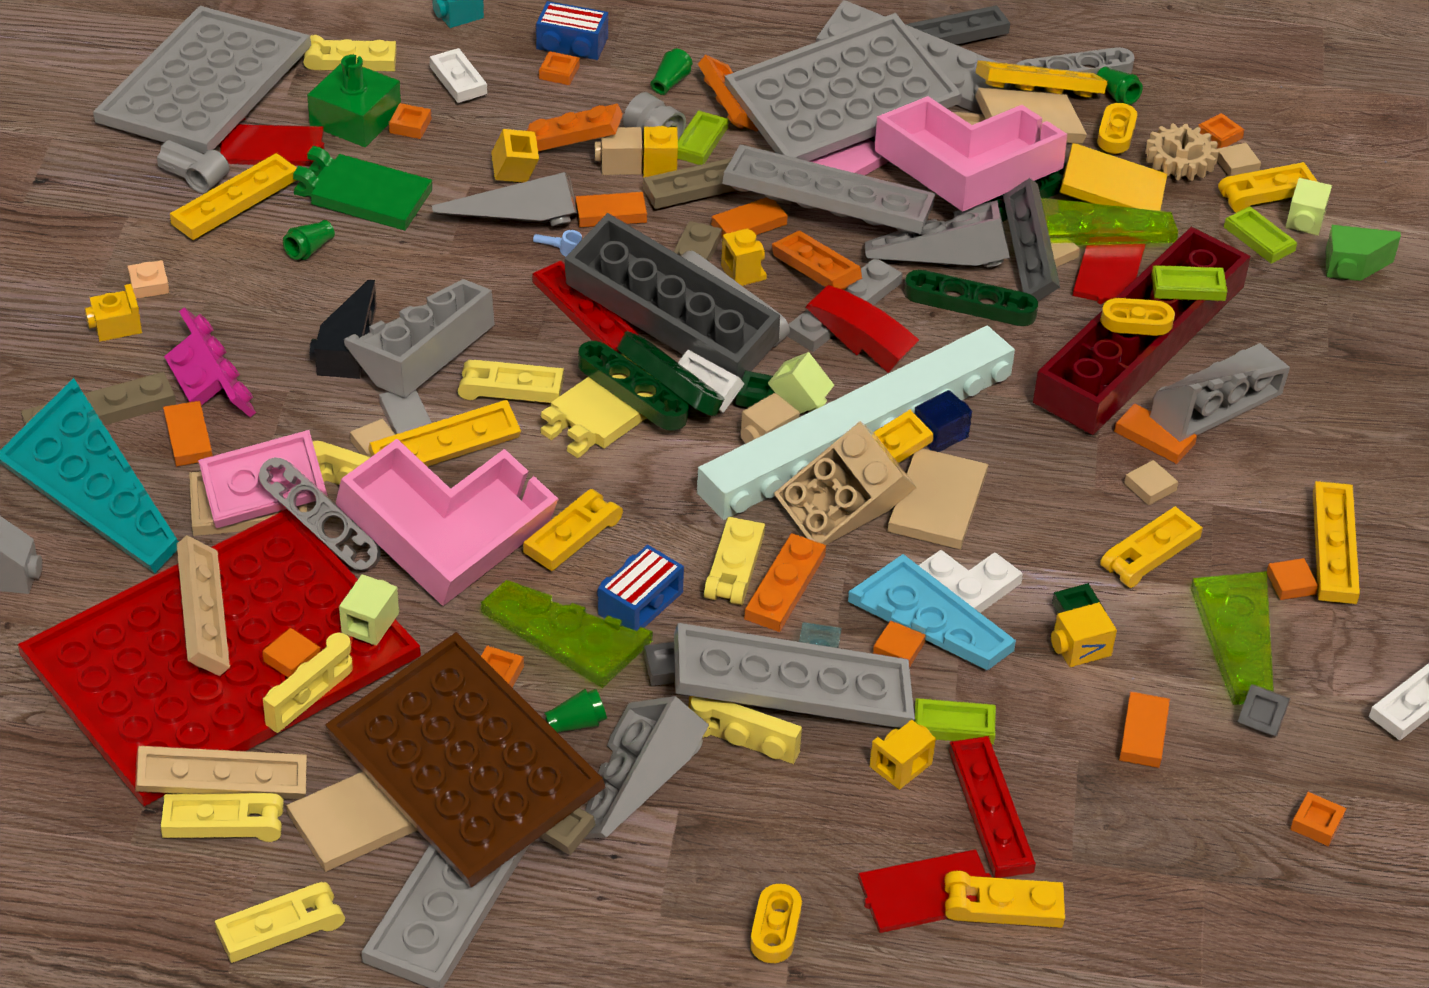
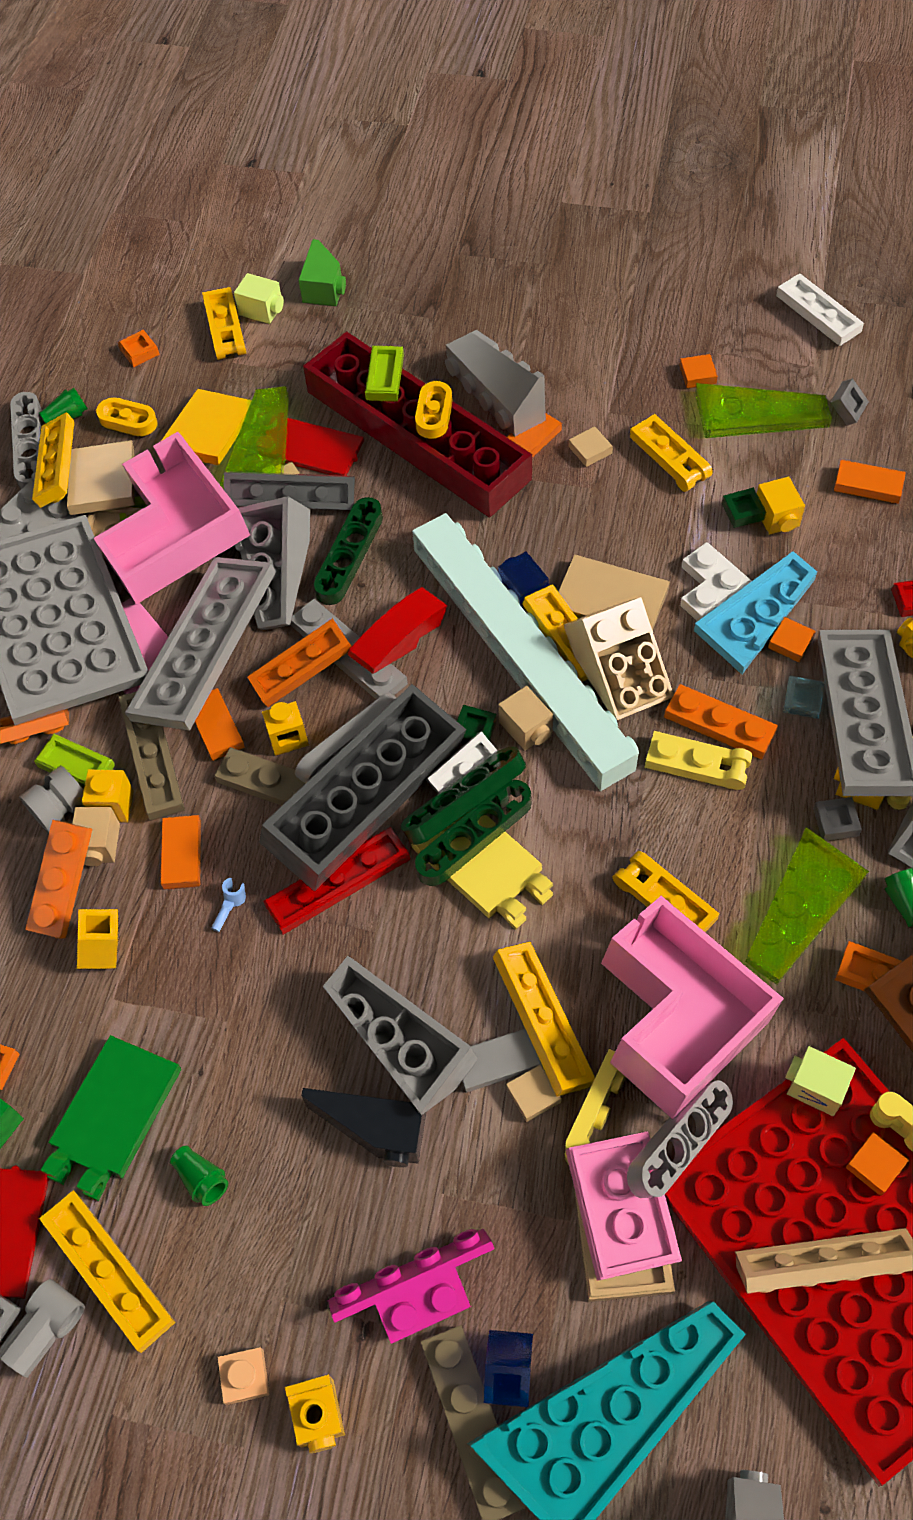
camera: 80 degrees left, 15 degrees up
(135, 413) = (508, 1368): none -> clear blue brick
(187, 433) = (519, 1306): orange tile -> none
(510, 381) = (452, 951): light yellow plate -> none
(532, 201) = (168, 925): light grey wedge -> none
(641, 588) = (750, 837): brick -> none
(802, 383) = (479, 685): yellowish green brick -> none
(956, 719) = (874, 603): lime tile -> none
(1182, 151) = (171, 373): tan gear -> none
(1238, 159) = (181, 340): tan tile -> none
(1260, 234) = (282, 339): lime tile -> none
(1335, 542) = (660, 337): yellow plate -> none

